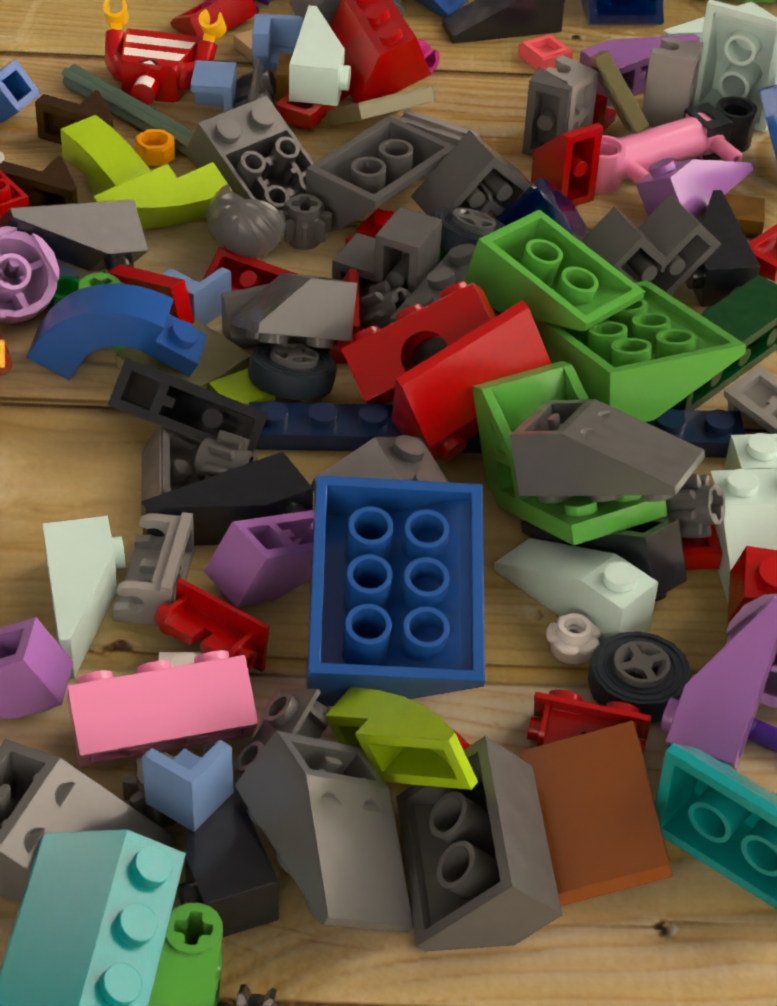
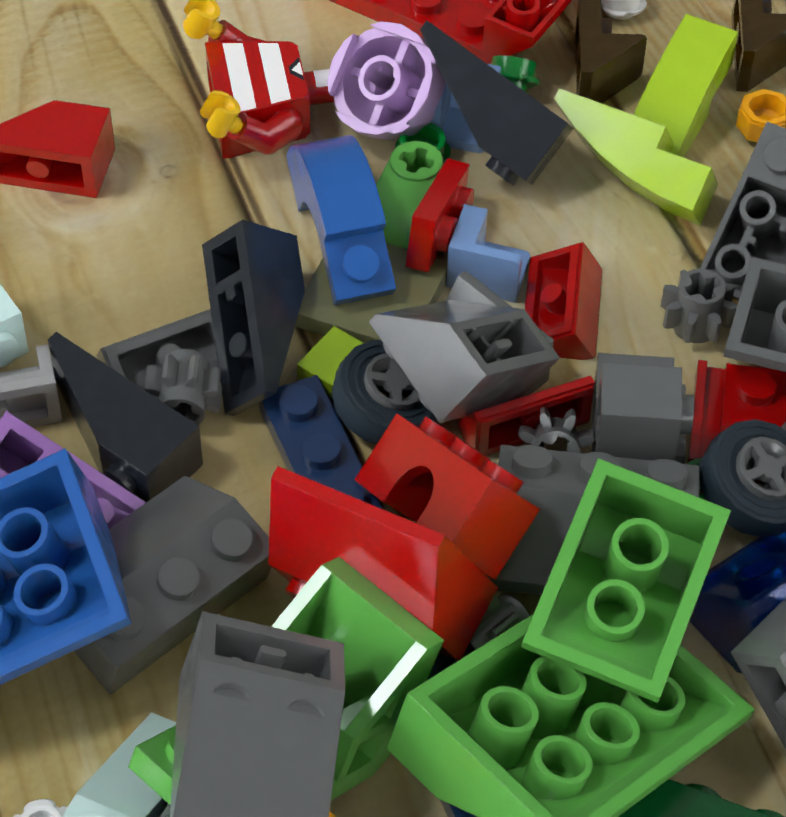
camera: 70 degrees right, 10 degrees up
(244, 225) = (631, 244): dark grey hair -> none

